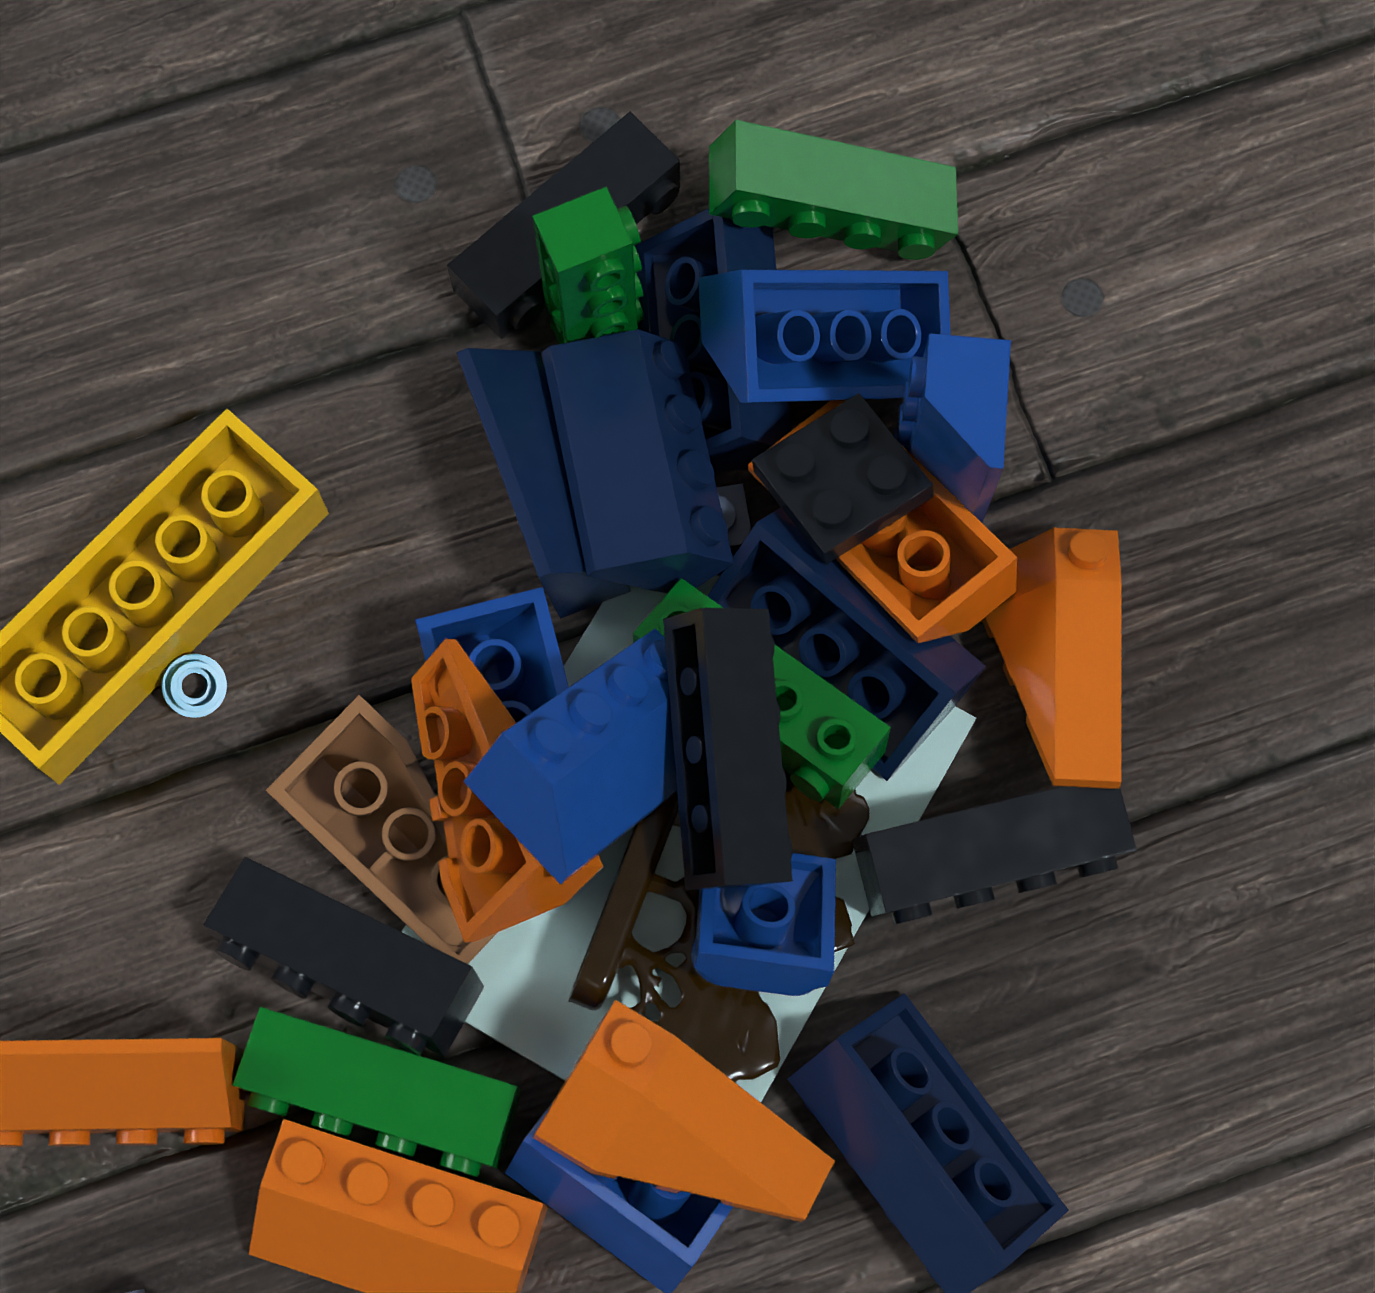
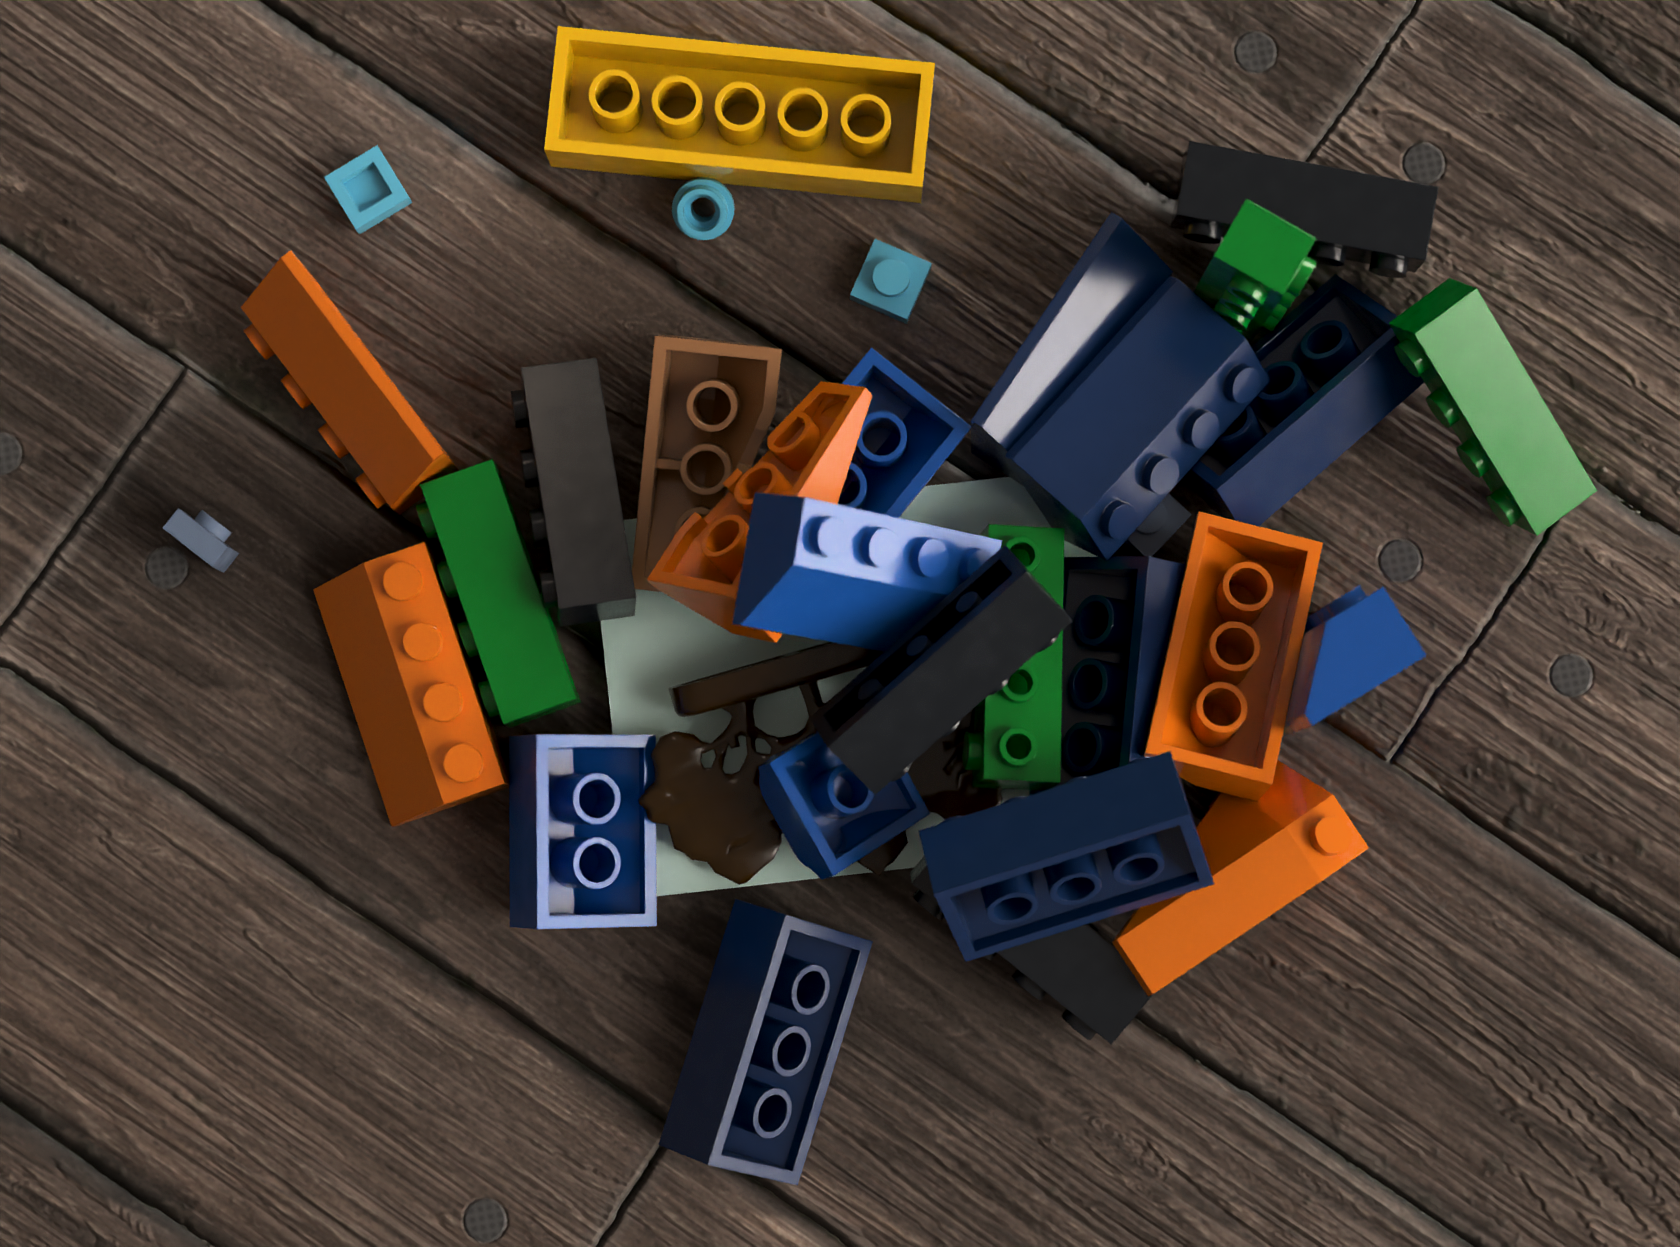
camera: 55 degrees right, 10 degrees up
(372, 581) = (890, 281): none -> medium azure plate
(671, 1119) = (633, 835): orange wedge -> none
(820, 330) = (1356, 494): blue slope -> none
(842, 478) = (1239, 597): black plate -> none
(959, 761) = (1065, 856): none -> dark blue slope

